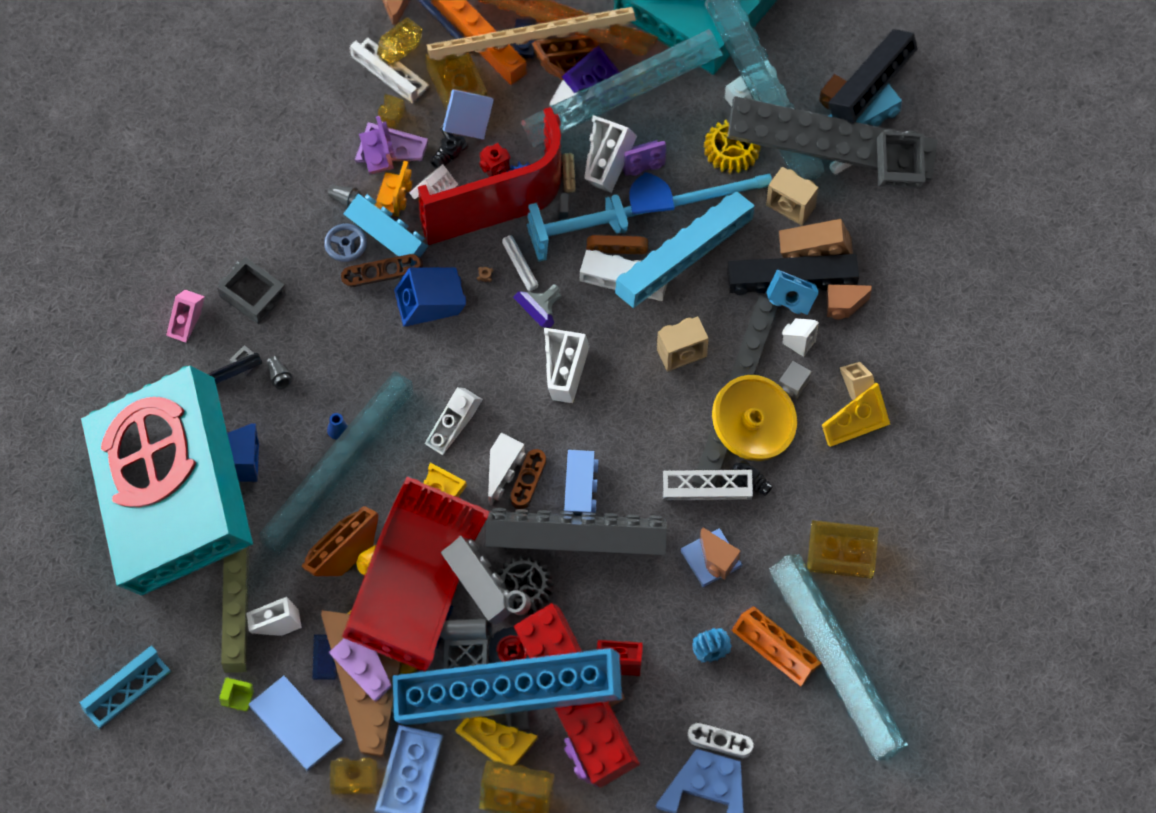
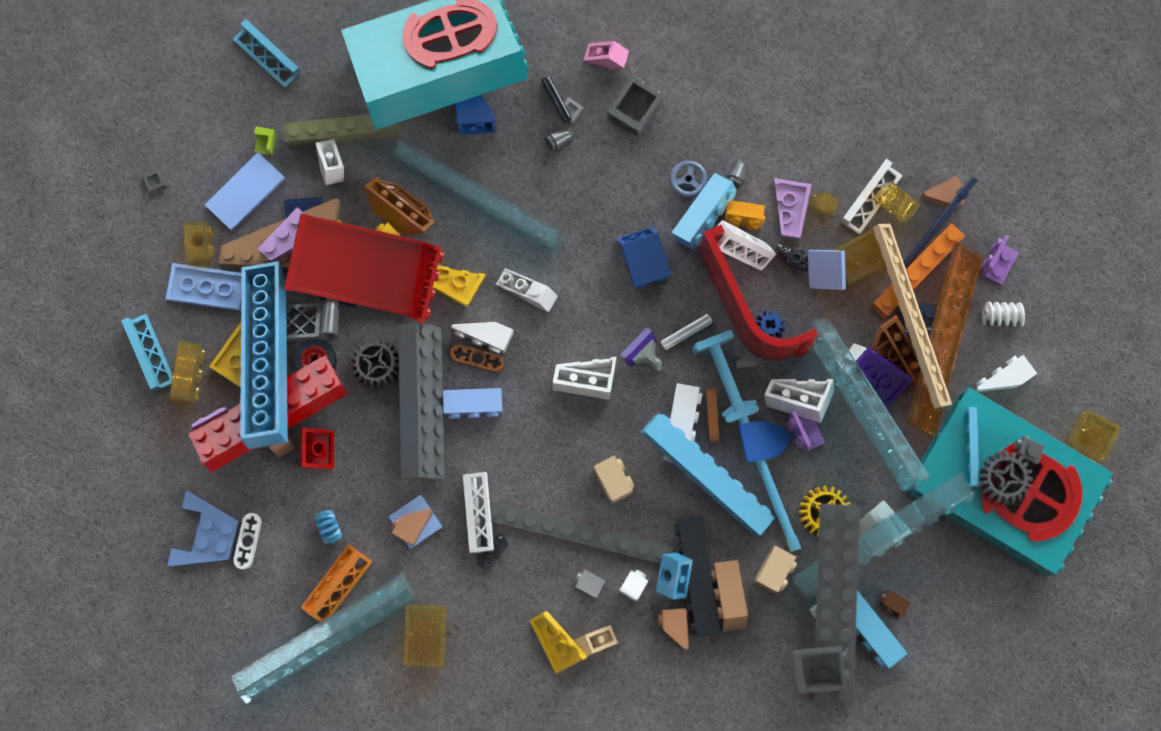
camera: 85 degrees right, 15 degrees up
(336, 426) = (513, 196): blue cone -> none
(378, 148) = (783, 195): medium lavender bracket -> none
(381, 267) = (665, 211): reddish brown beam -> none
(481, 582) = (368, 326): light grey hinge -> none
(485, 274) = (672, 302): medium nougat piece -> none
(494, 160) = (781, 304): red brick -> none
(568, 172) = (783, 366): tan axle -> none
(754, 417) = (547, 549): yellow dish -> none
(873, 75) = (911, 639): black brick -> none

